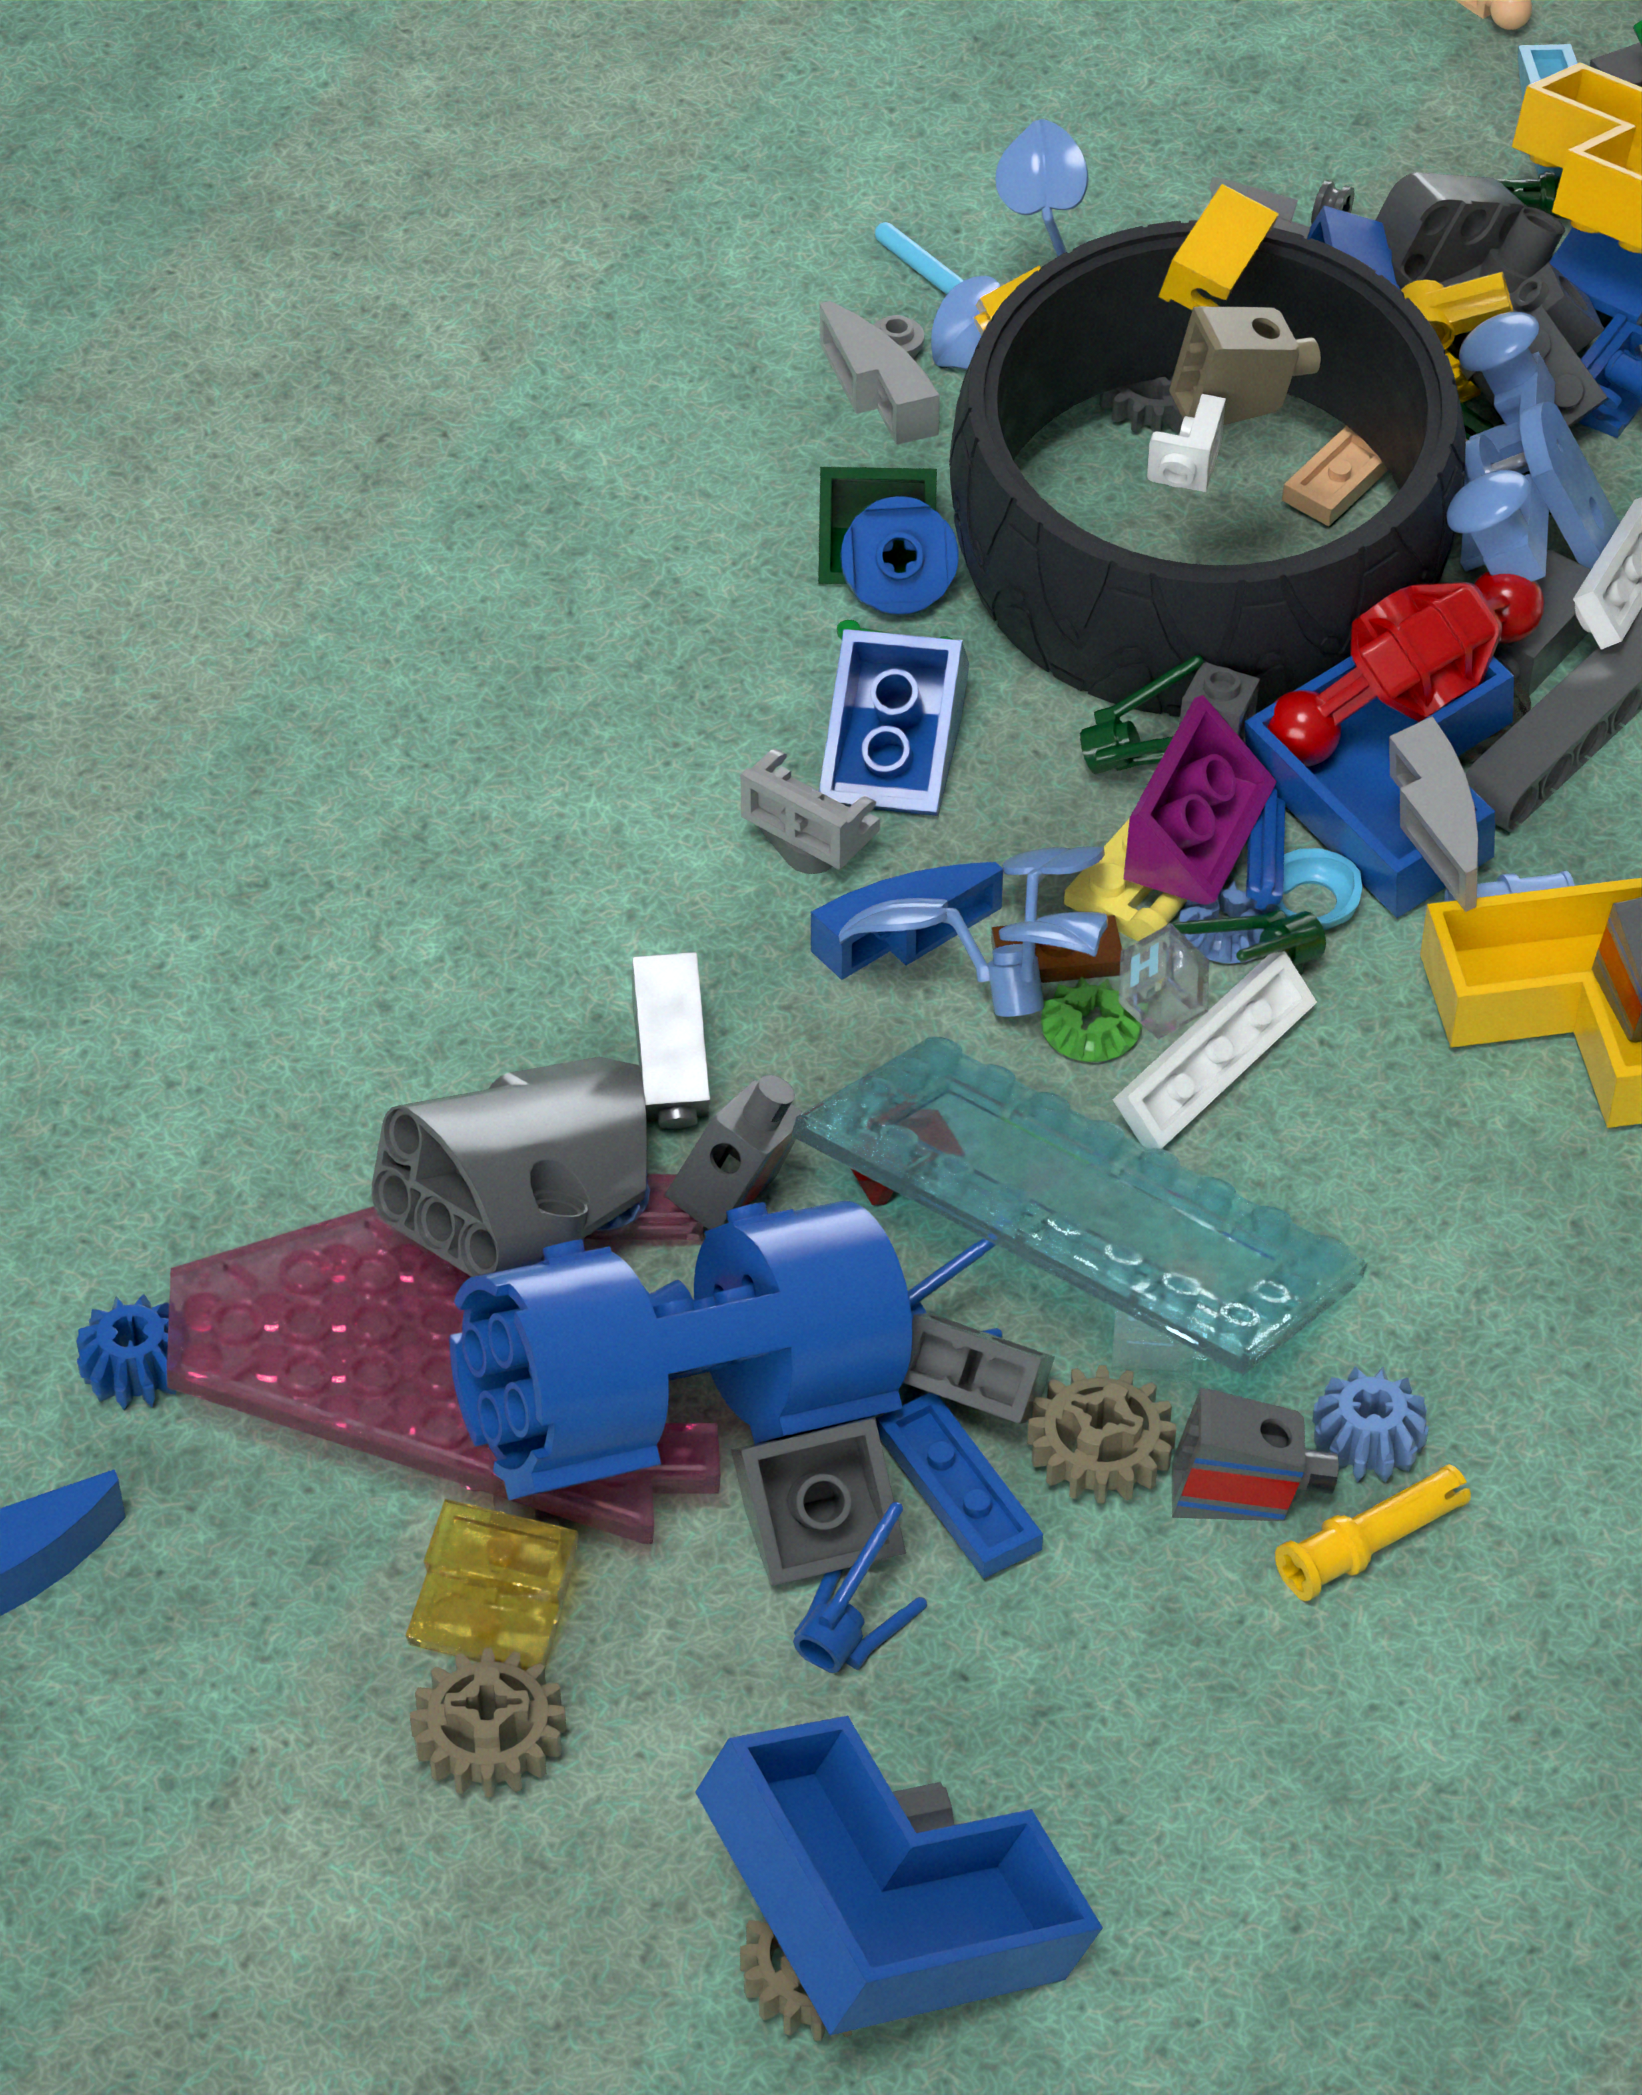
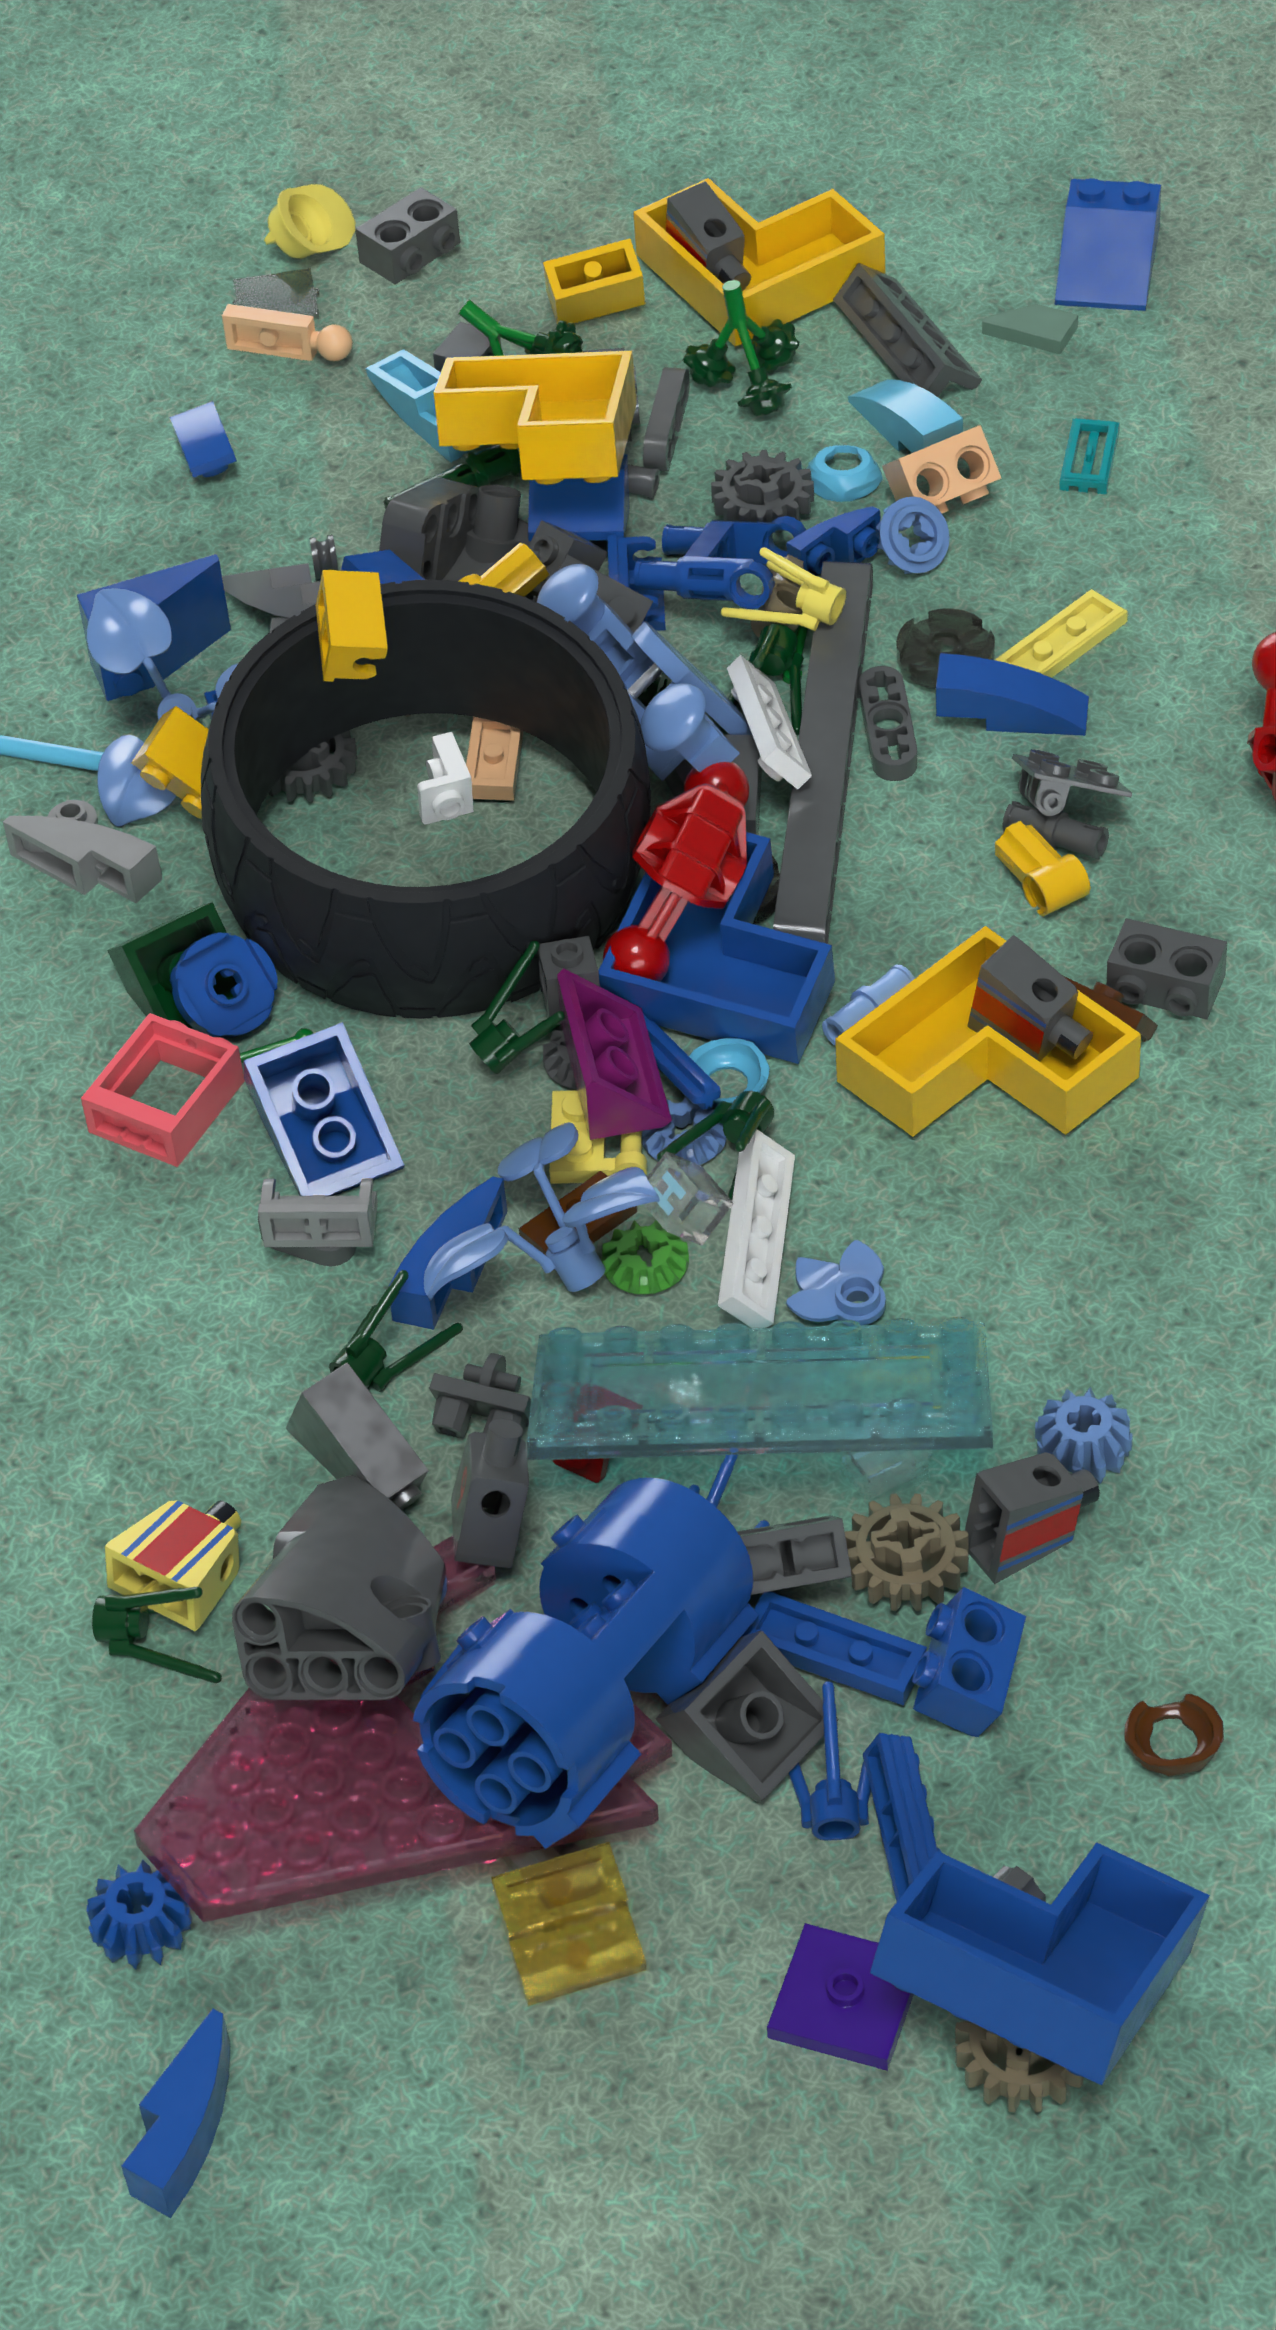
camera: 30 degrees left, 0 degrees up
(344, 1084) = (126, 1617): none -> dark green plant
(426, 1048) = (174, 1551): none -> light yellow torso
(488, 1722) = (641, 2030): dark tan gear -> none
(668, 1823) = (835, 2001): none -> dark purple plate
(716, 603) = (148, 1130): none -> coral window
(744, 965) = (367, 1355): none -> dark green plant
(799, 1055) = (460, 1398): none -> dark grey hips
(898, 1667) = (900, 1807): none -> blue piece
(1072, 1576) = (968, 1662): none -> blue brick
(1129, 186) = (196, 610): none -> blue slope
(1196, 1735) = (1194, 1714): none -> reddish brown piece
(1242, 358) = (435, 697): dark tan torso -> none
(1251, 1146) = (831, 1288): none -> medium blue plate
(1308, 44) = (203, 440): none -> blue slope
(1349, 1542) = (1136, 1528): yellow pin -> none
(1437, 806) = (800, 963): light grey slope -> none

